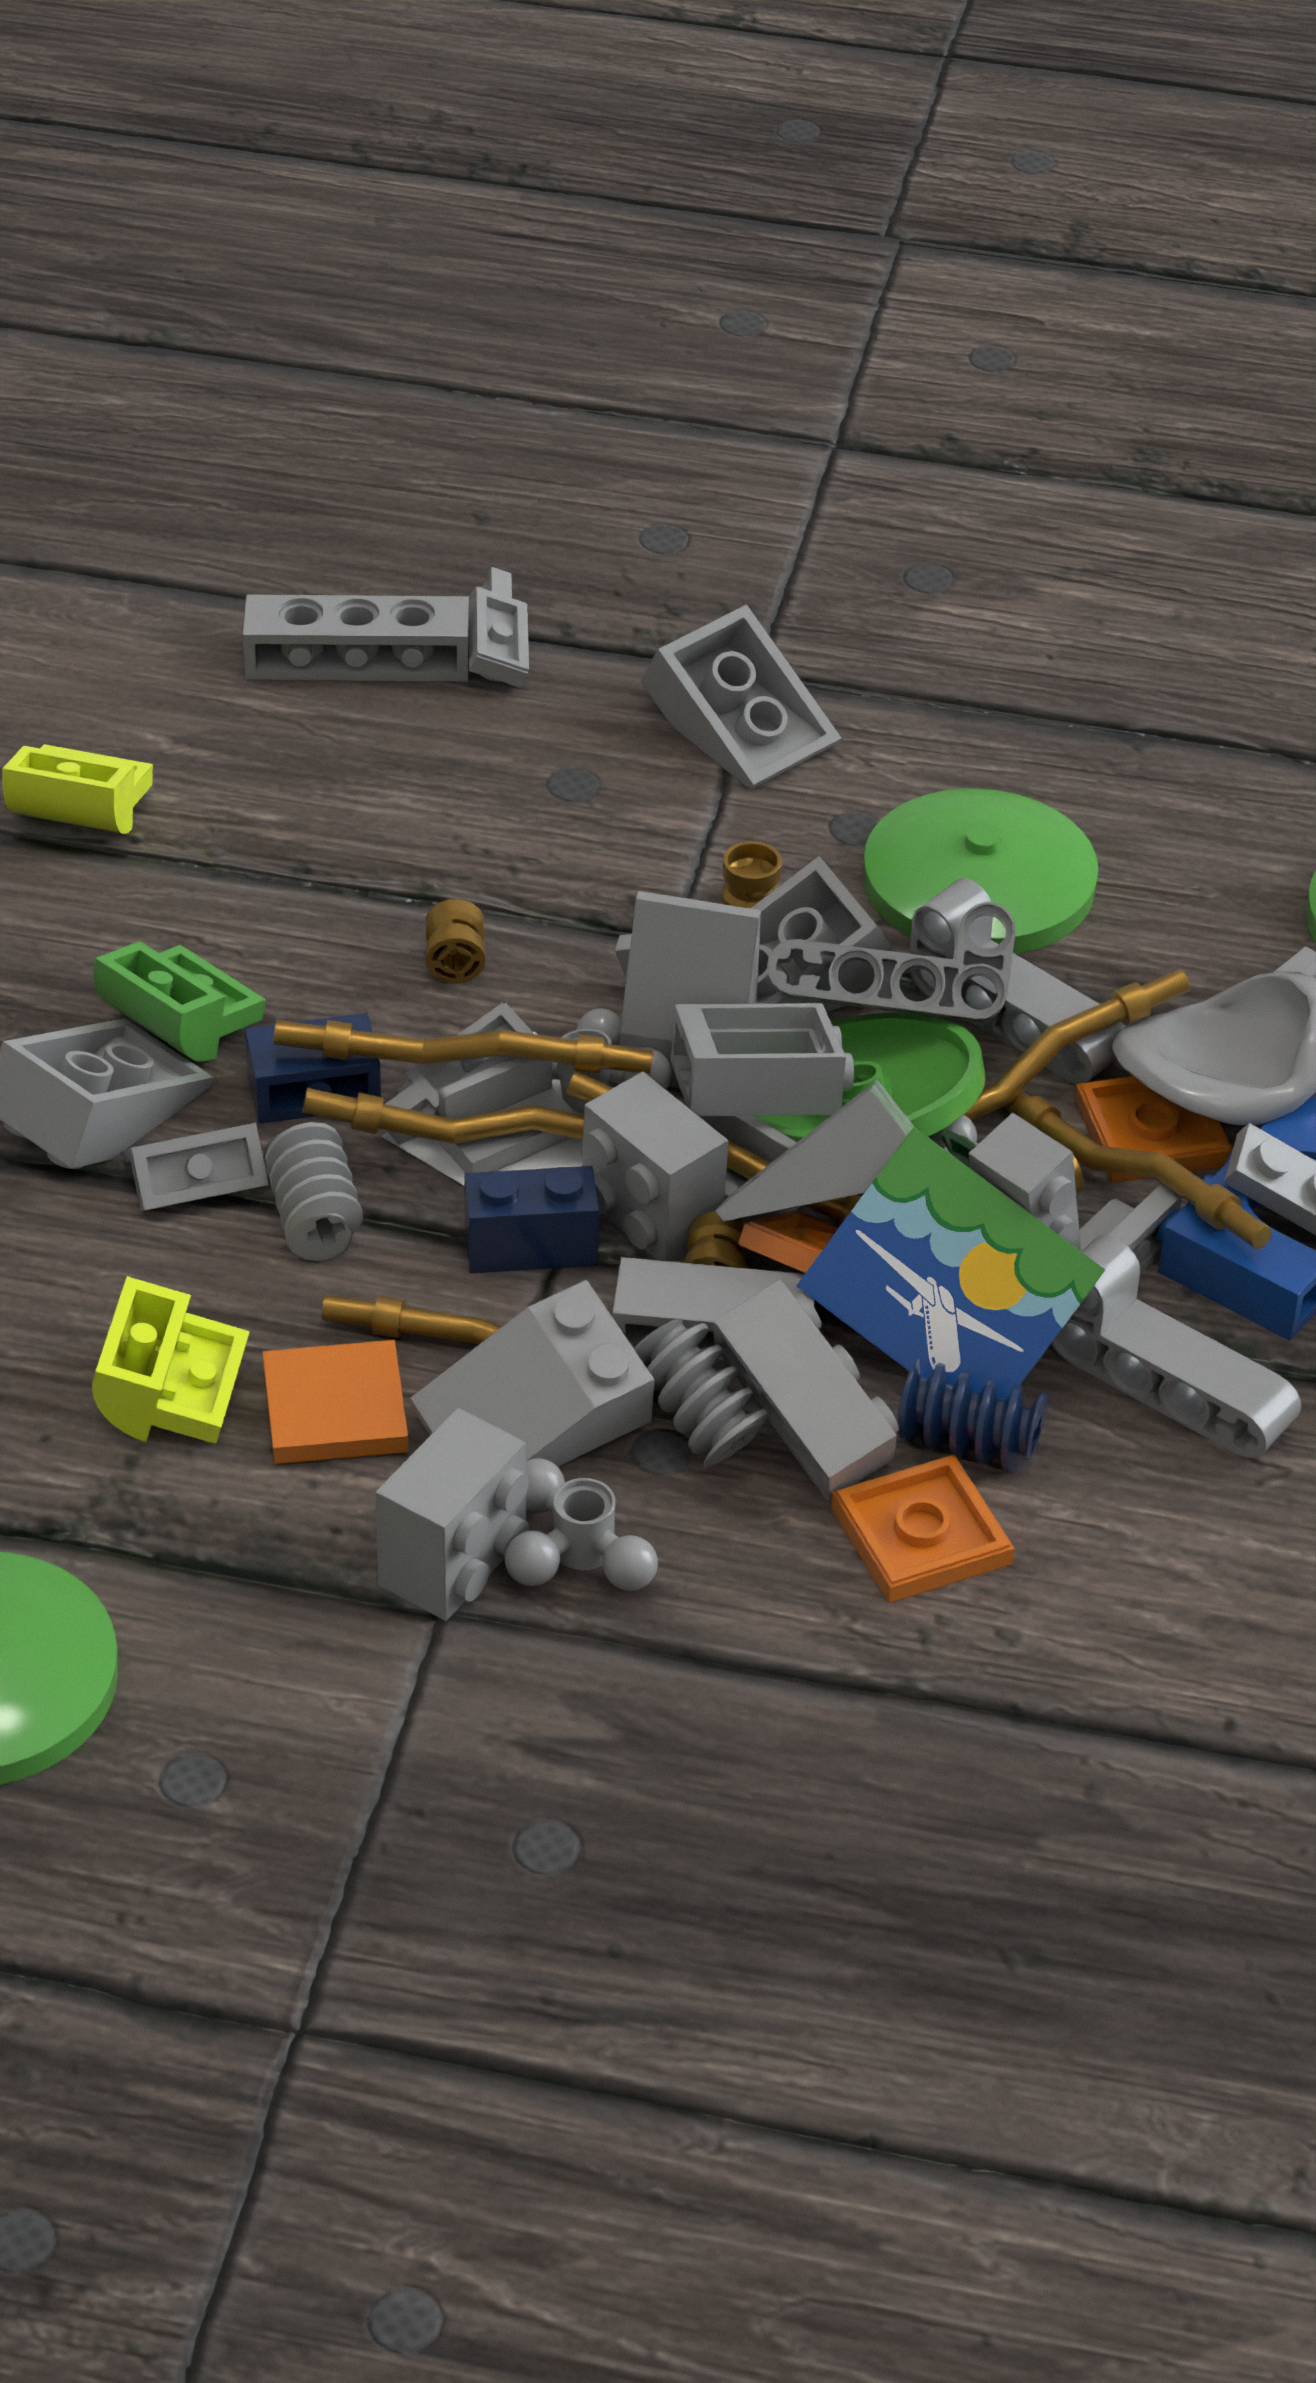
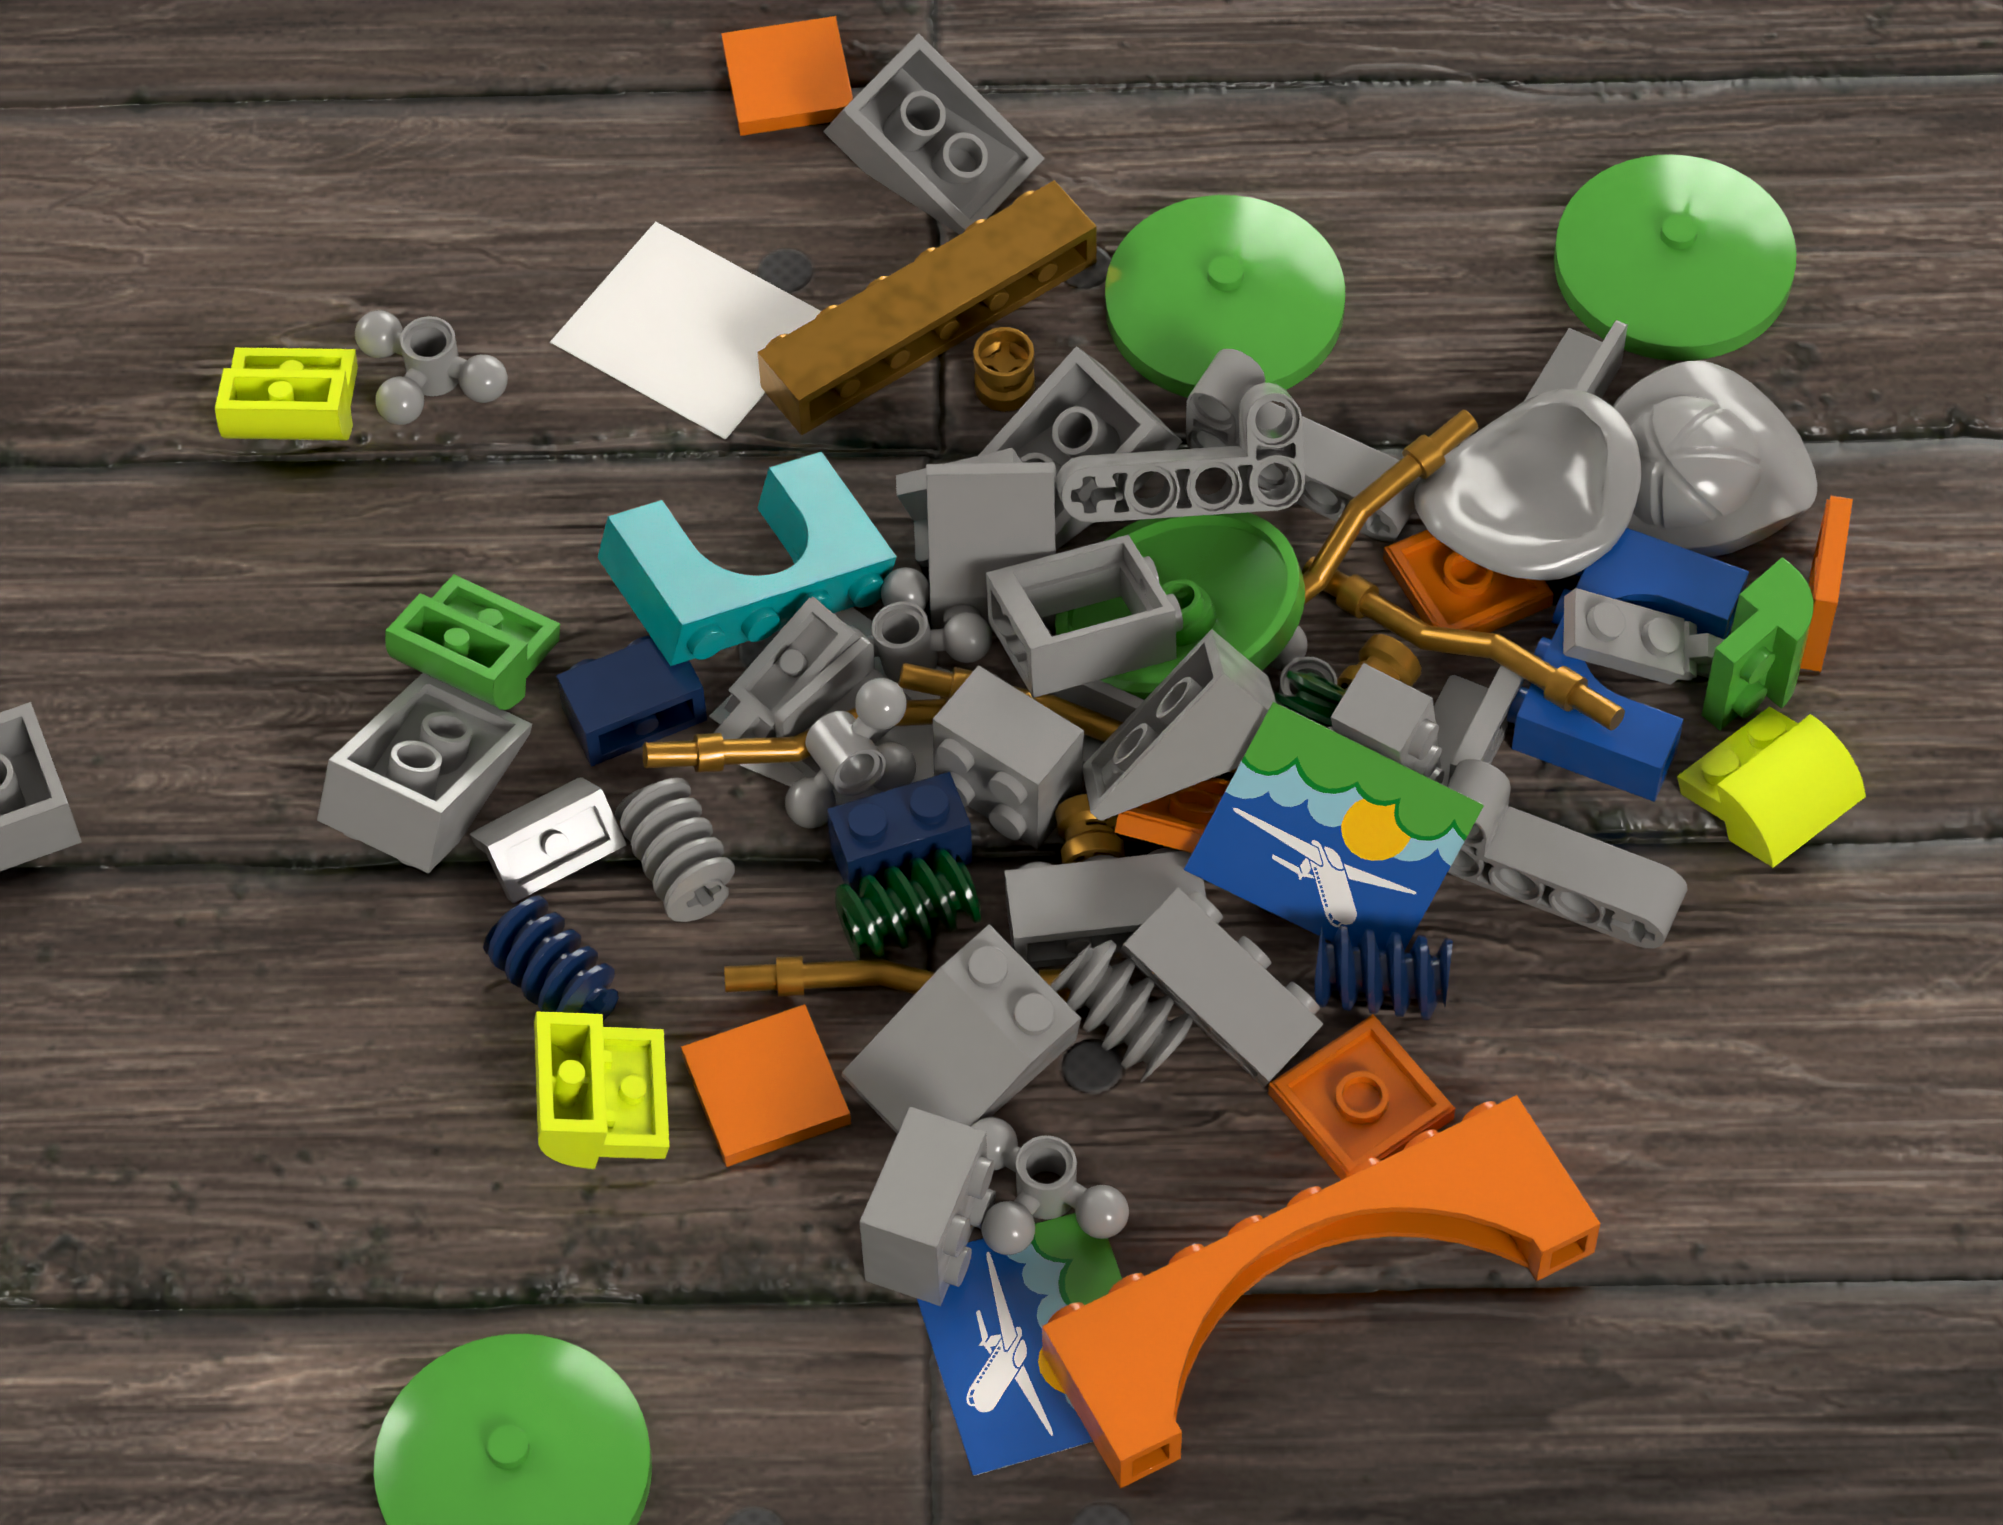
camera: 10 degrees left, 15 degrees up
(155, 1246) = (549, 961): none -> dark blue piece
(218, 787) = (402, 398): none -> light grey piece
(339, 1041) = (910, 642): pearl gold bar -> none
(356, 638) = (516, 136): light grey brick -> none
(398, 993) = (702, 608): none -> arch
(455, 941) = (726, 501): pearl gold wheel -> none
(469, 812) = (683, 328): none -> white sticker
(498, 631) = (658, 94): light grey hinge -> none
(516, 1270) = (906, 902): none -> dark green piece
(536, 1677) = (993, 1348): none -> blue sticker
(538, 1093) = (850, 757): none -> light grey piece
(617, 637) = (787, 75): none -> orange tile
(692, 824) = (927, 307): none -> pearl gold brick
(1013, 1611) = (1473, 1185): none -> orange arch

